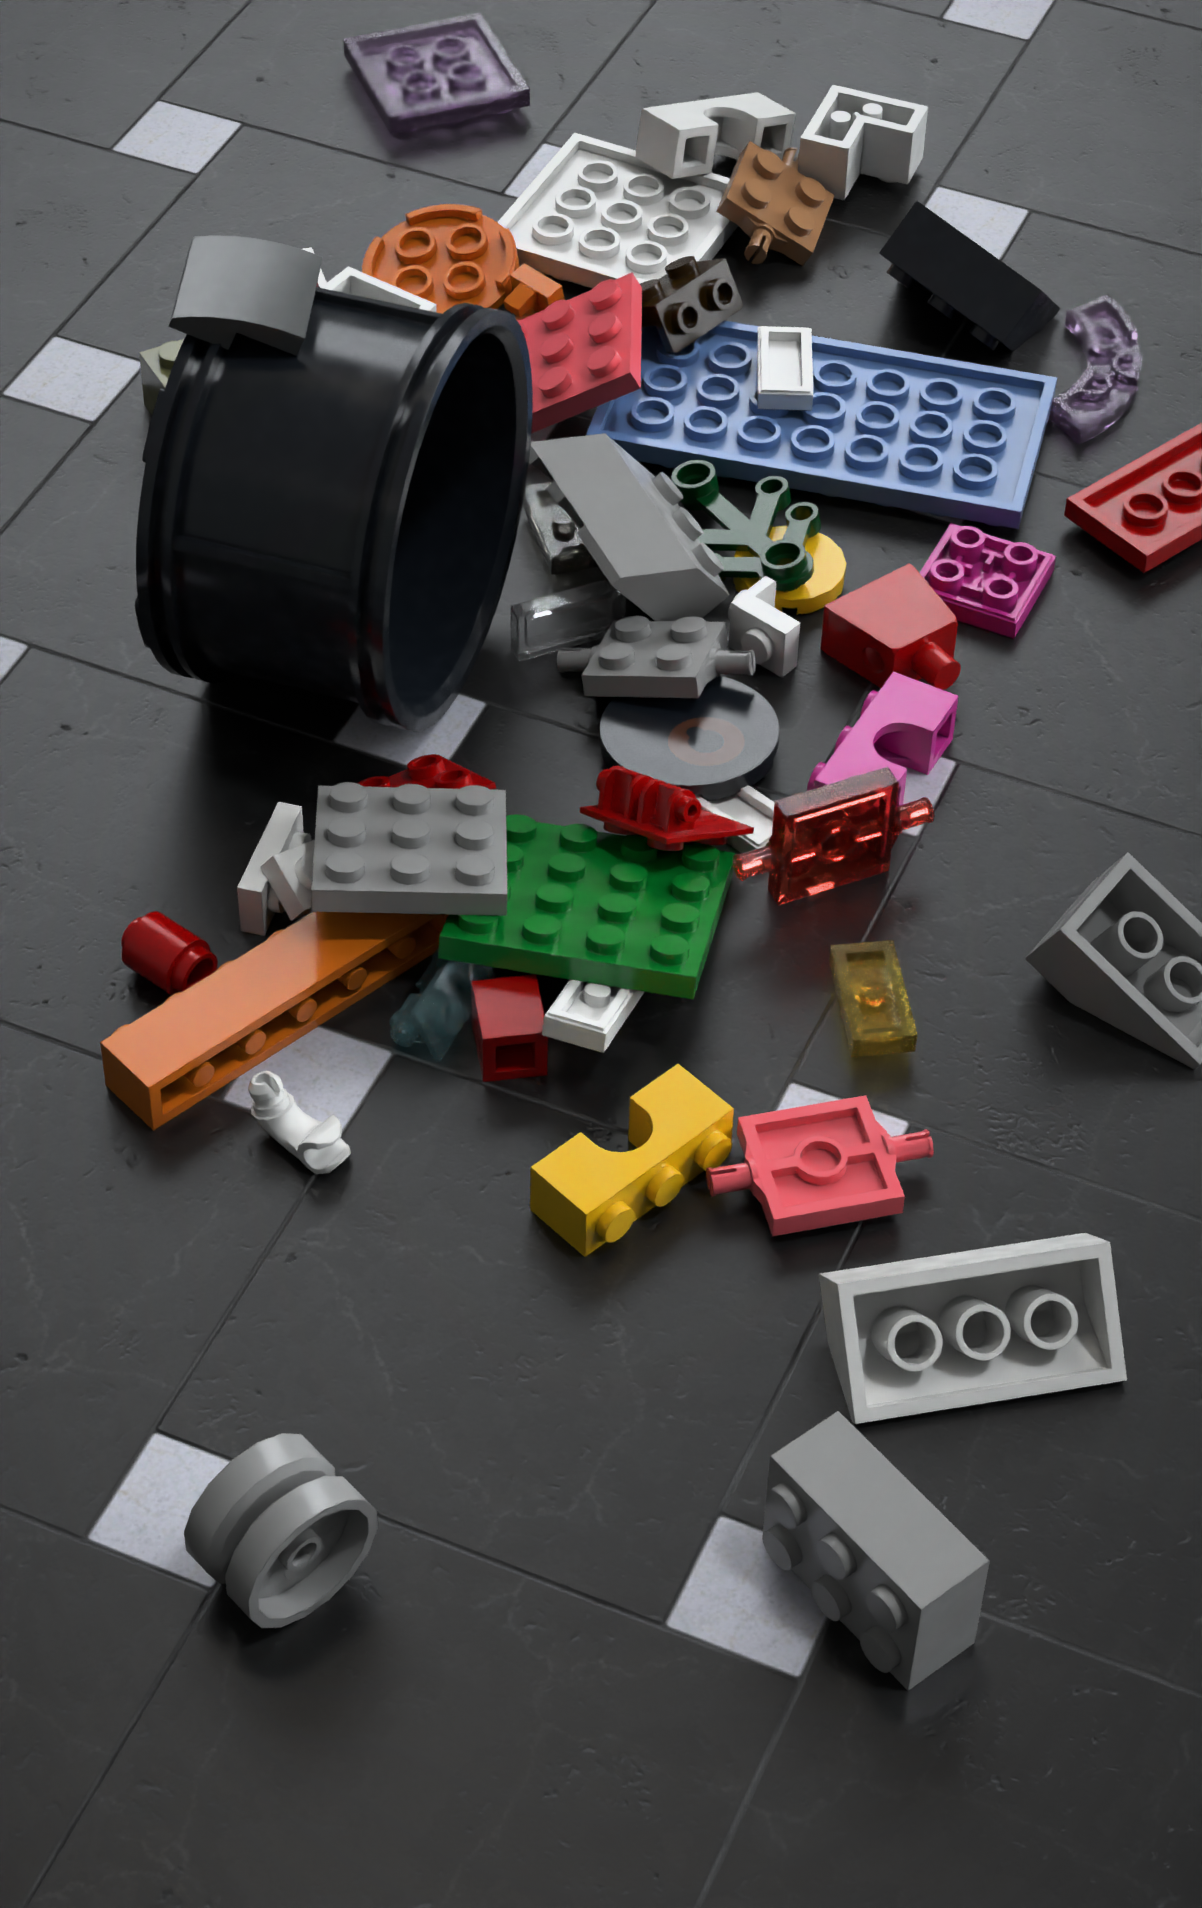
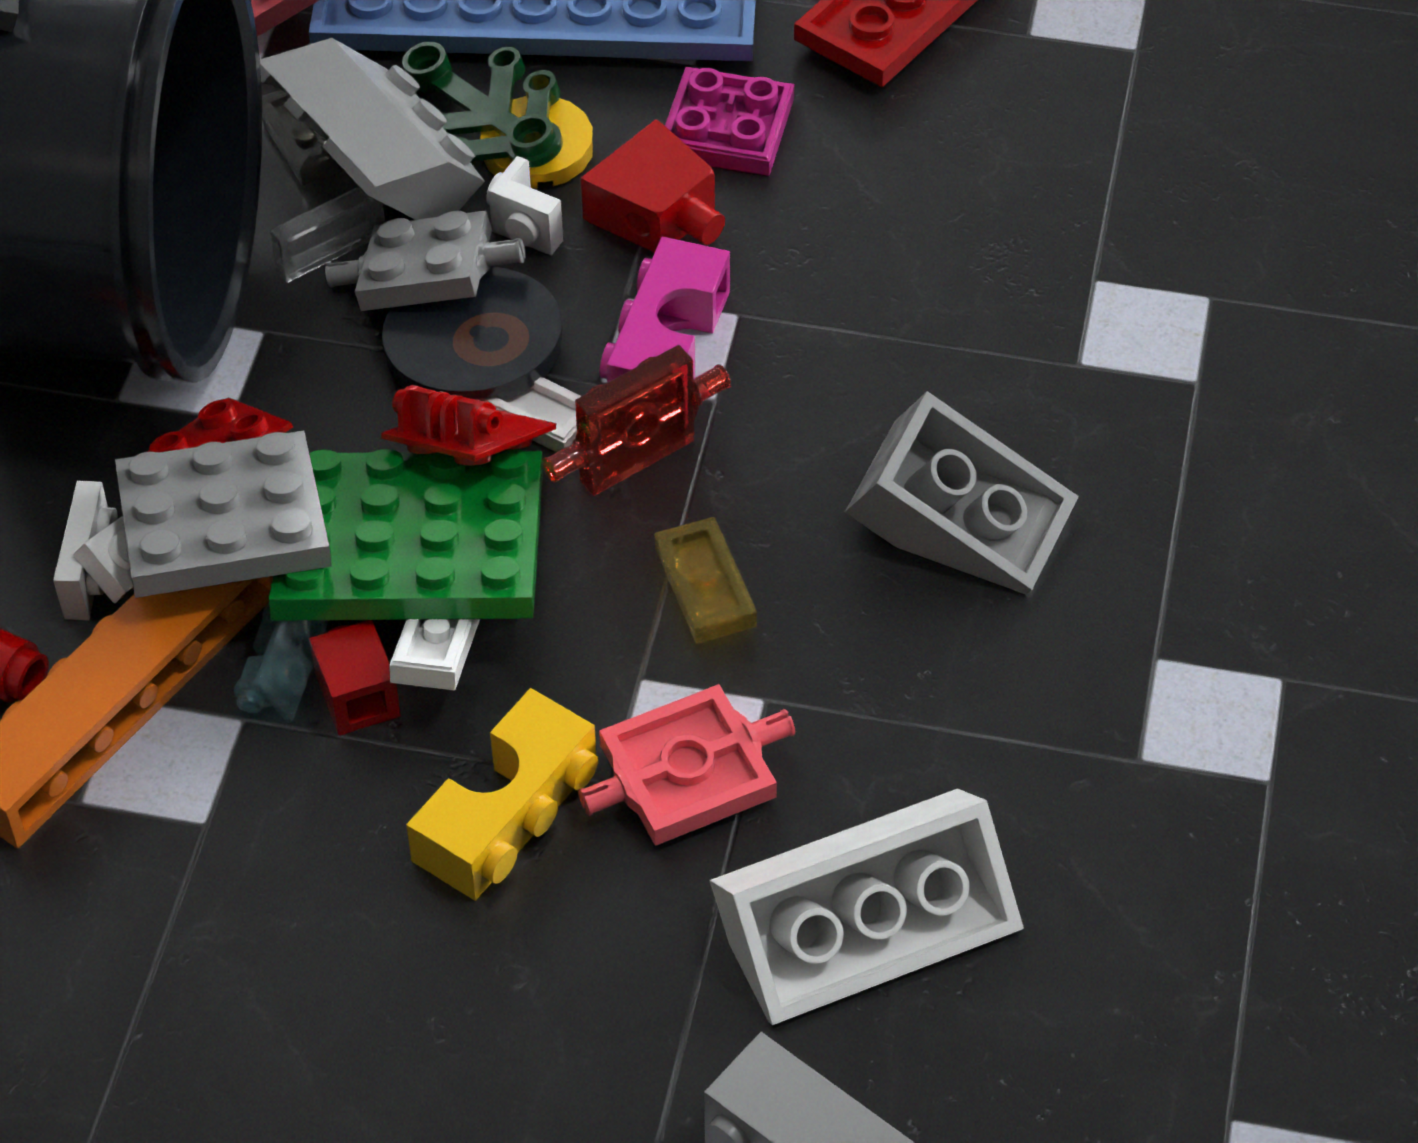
camera: 10 degrees left, 5 degrees up
(309, 1140) = (176, 830): white piece -> none

